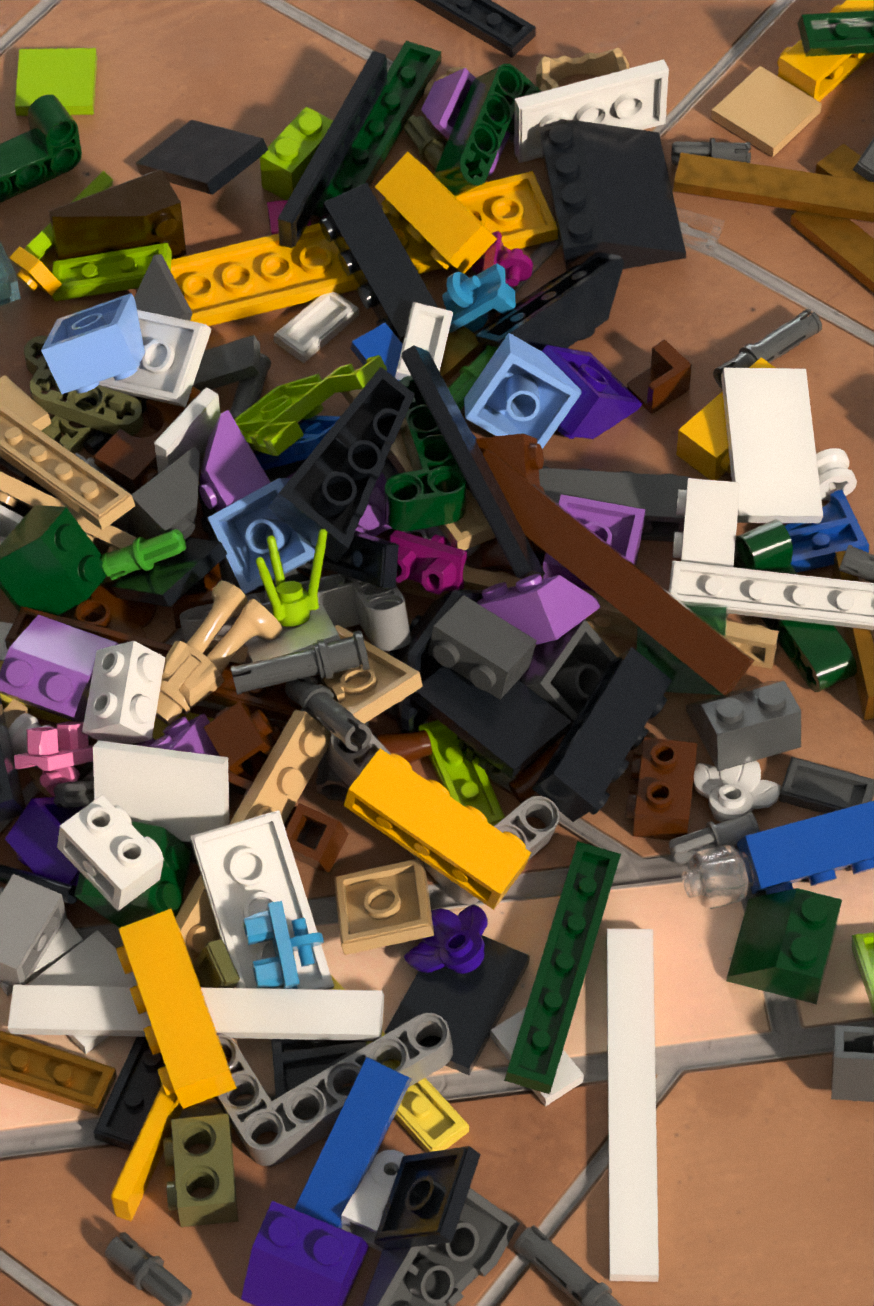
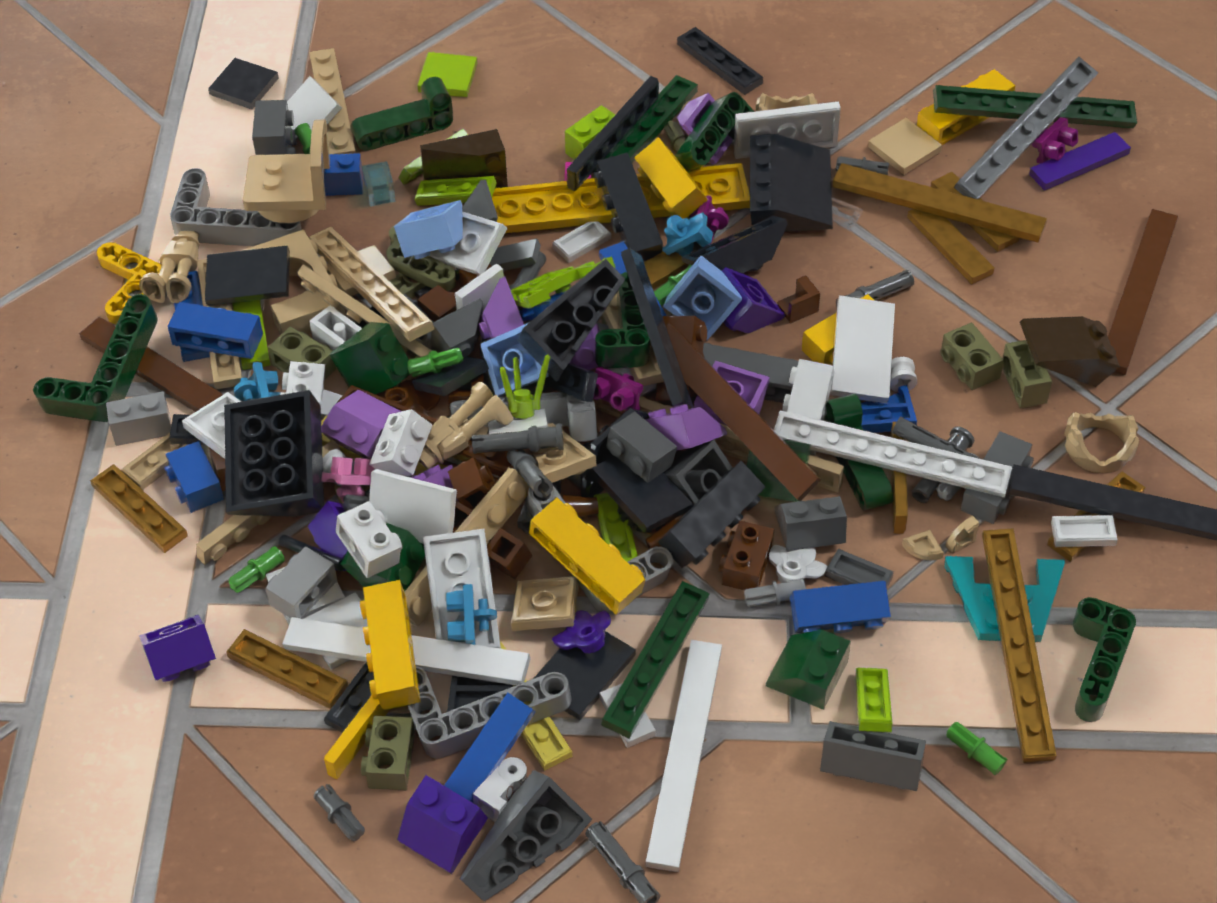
camera: 10 degrees right, 5 degrees down
(34, 272) = (405, 184): yellow plate -> none
(203, 156) = (530, 128): black tile -> none
(215, 967) = (424, 623): olive tile -> none
(427, 1198) = (529, 789): black tile -> none
(428, 330) = (651, 249): white tile -> none
(718, 876) = (772, 616): clear head -> none

